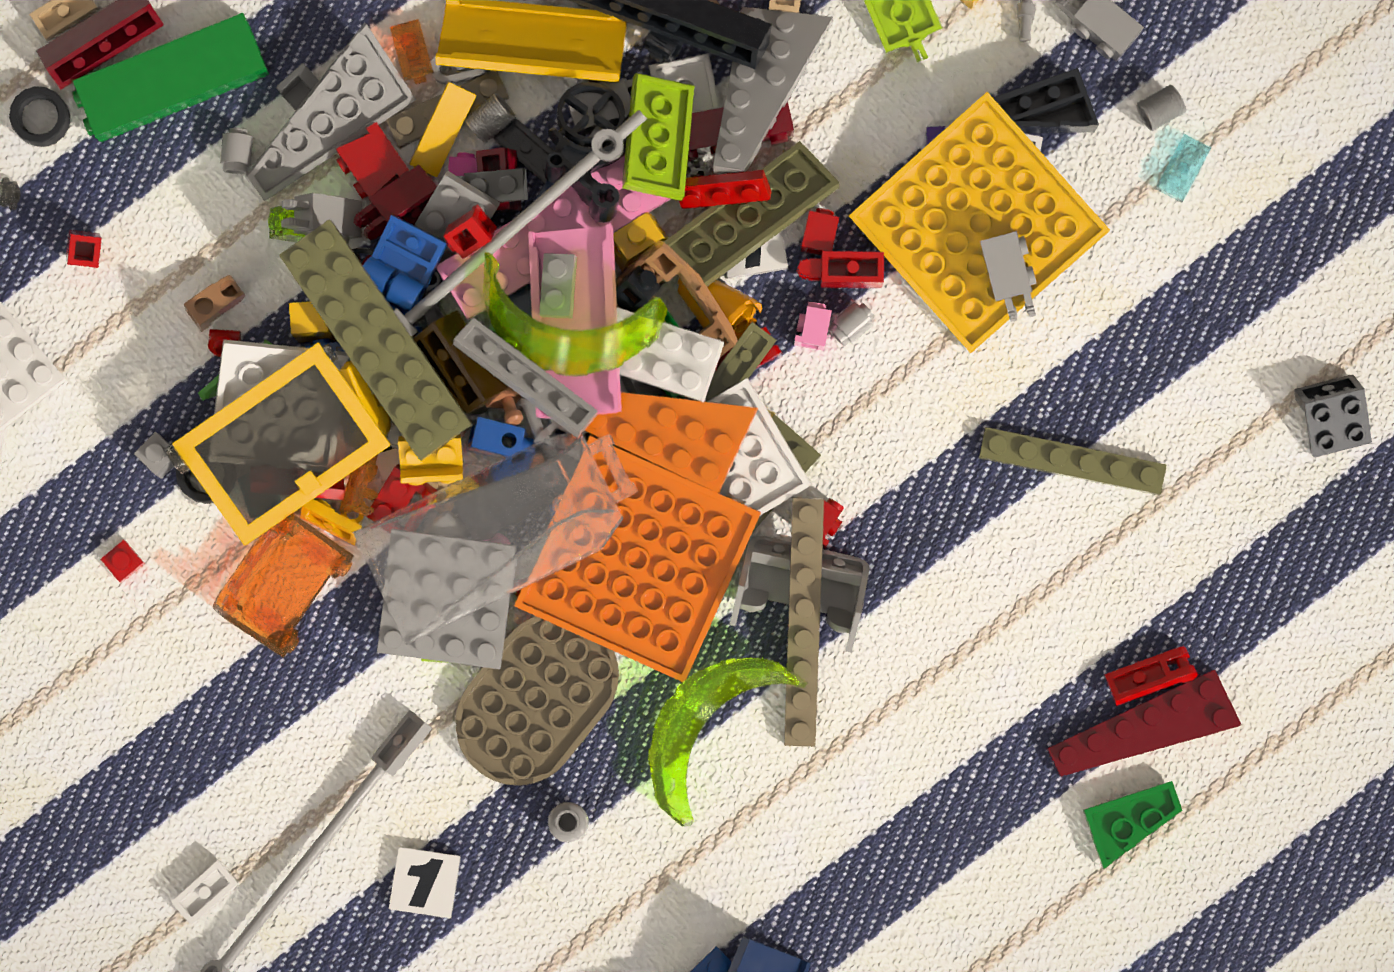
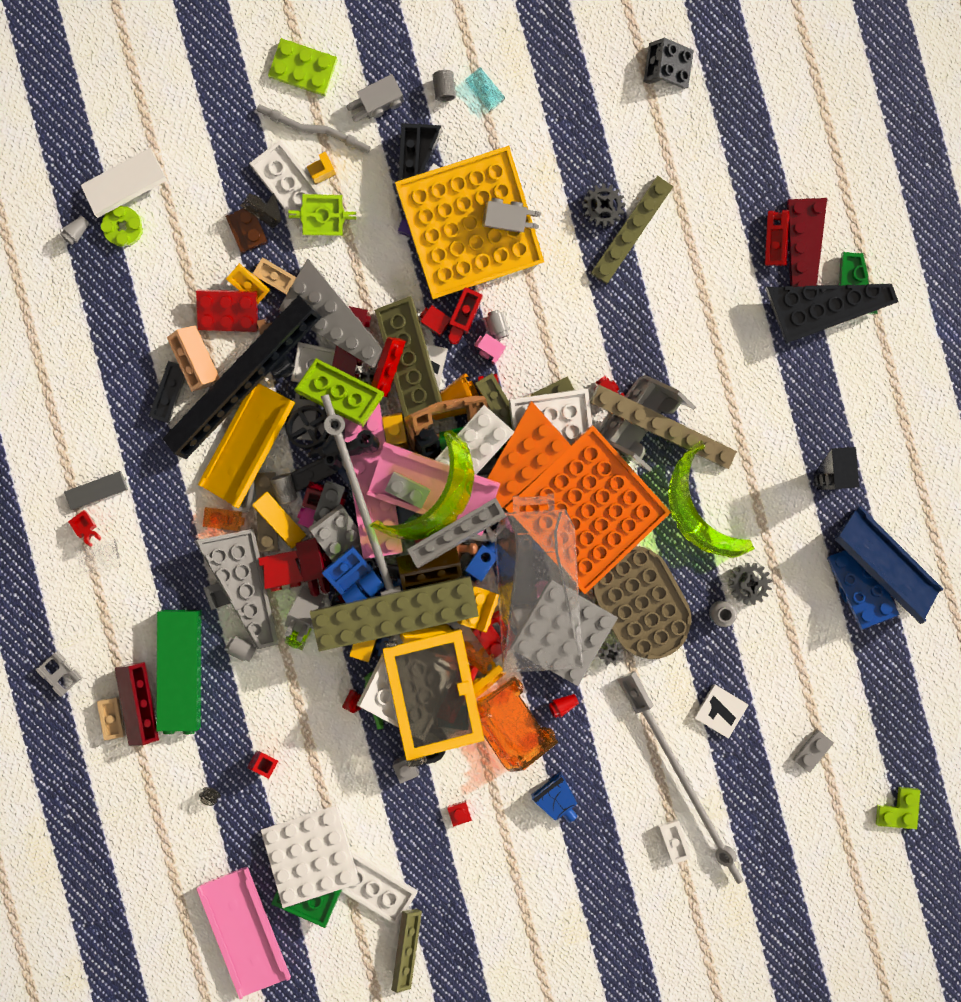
camera: 65 degrees left, 5 degrees up
(25, 98) = (158, 768): black tyre -> none
(199, 692) = (556, 799): none -> blue torso
(214, 302) = (326, 698): medium nougat leg -> none
(339, 645) = (563, 705): none -> red cone
(452, 683) = (616, 656): none -> flat silver gear
(479, 232) = (352, 529): red brick -> none
(621, 832) = (751, 591): none -> dark grey gear
(846, 895) = (838, 470): none -> black wedge
(1070, 772) = (819, 307): none -> black wing
(1102, 409) = (597, 200): none -> dark grey gear

